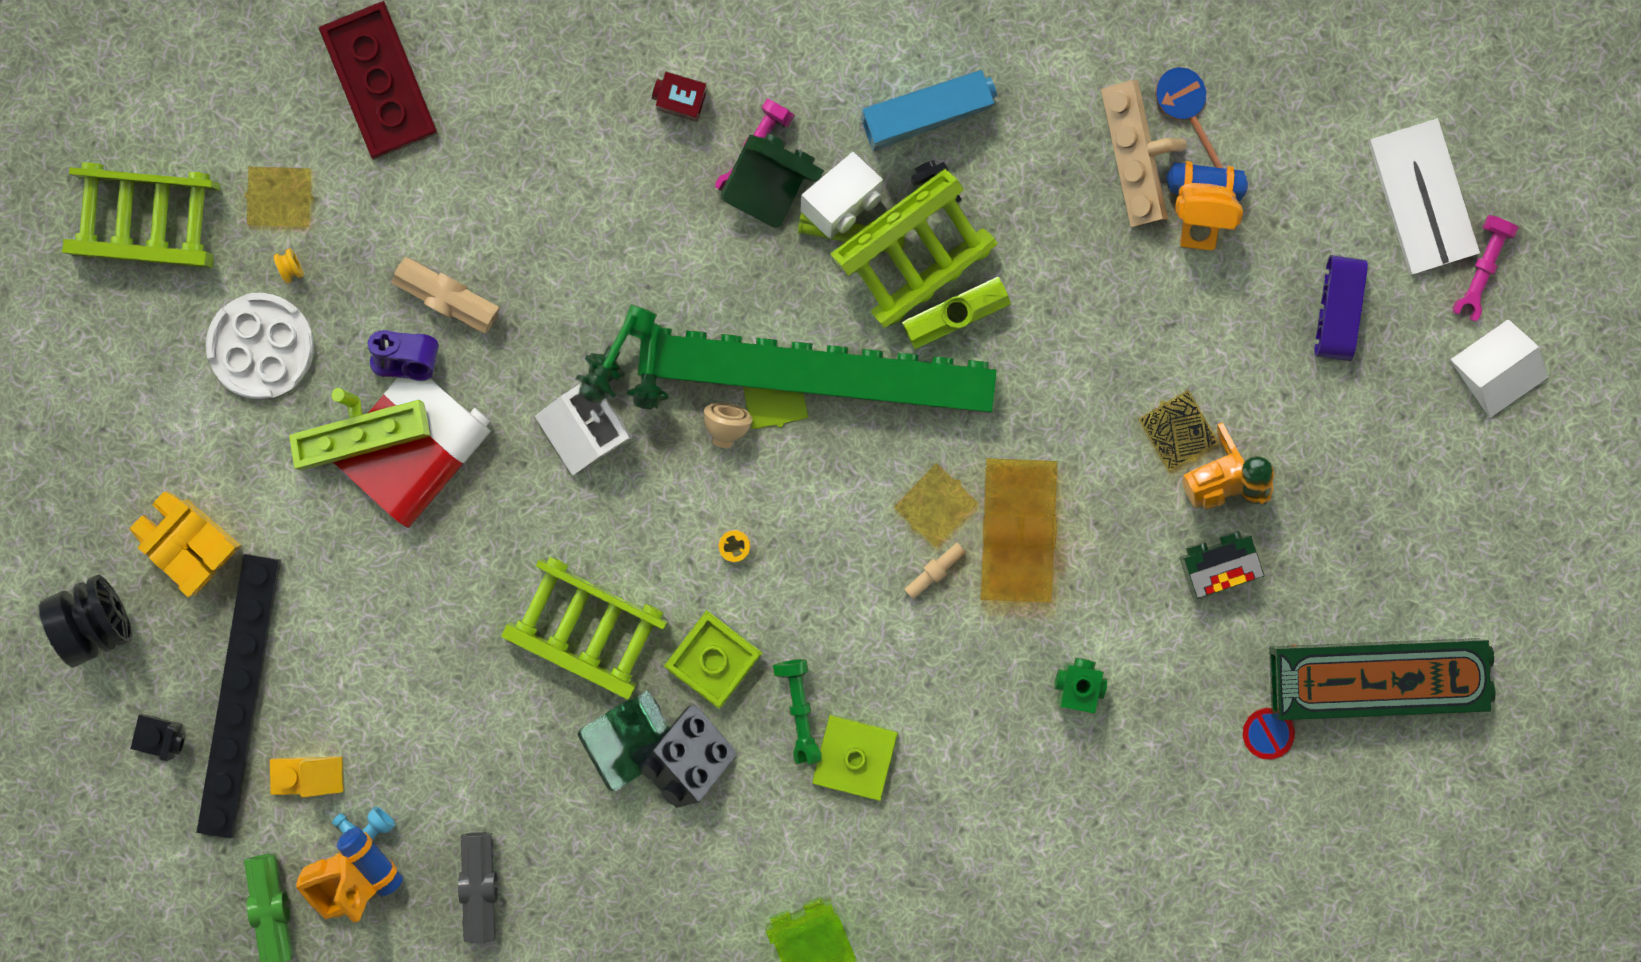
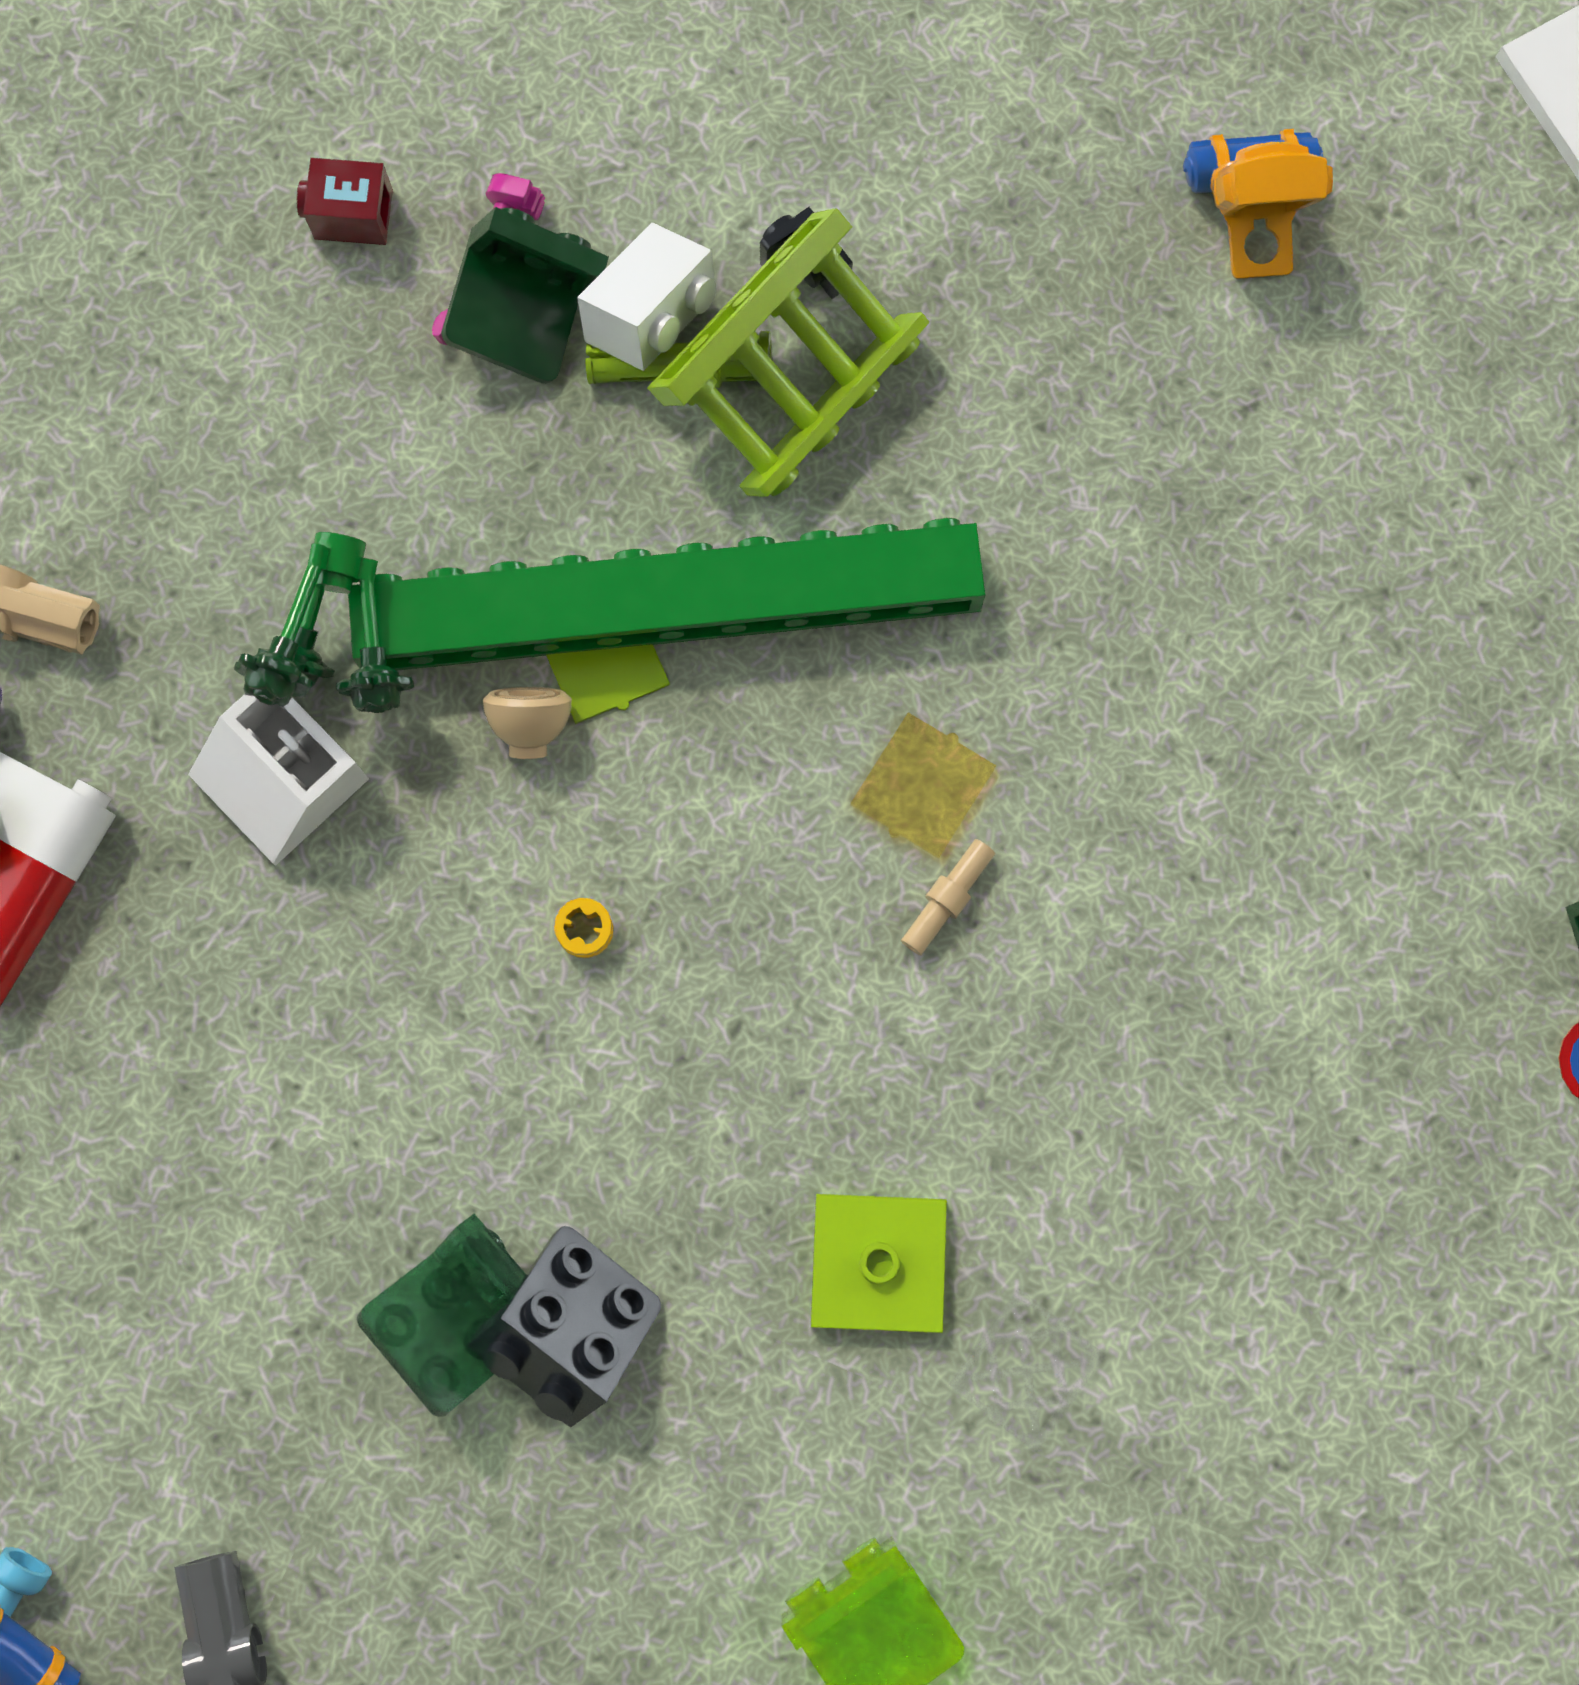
camera: 10 degrees left, 10 degrees down
(556, 646) = (296, 1173): lime fence -> none
(713, 659) = (585, 1137): lime plate -> none
(805, 747) = (786, 1262): green piece -> none
(927, 109) = (757, 137): dark azure slope -> none
(977, 303) = (913, 429): lime piece -> none
(1018, 530) = (1079, 795): clear yellow plate -> none
(1086, 697) = (1239, 1057): green brick -> none
(1136, 152) = (1125, 141): tan plate -> none
(1178, 430) = (1309, 575): clear yellow piece -> none
(1181, 96) = (1181, 47): blue piece -> none
(1221, 565) = (1446, 780): brick -> none
(1229, 477) = (1425, 620): light orange piece -> none
(1342, 308) = (1532, 316): dark purple beam -> none

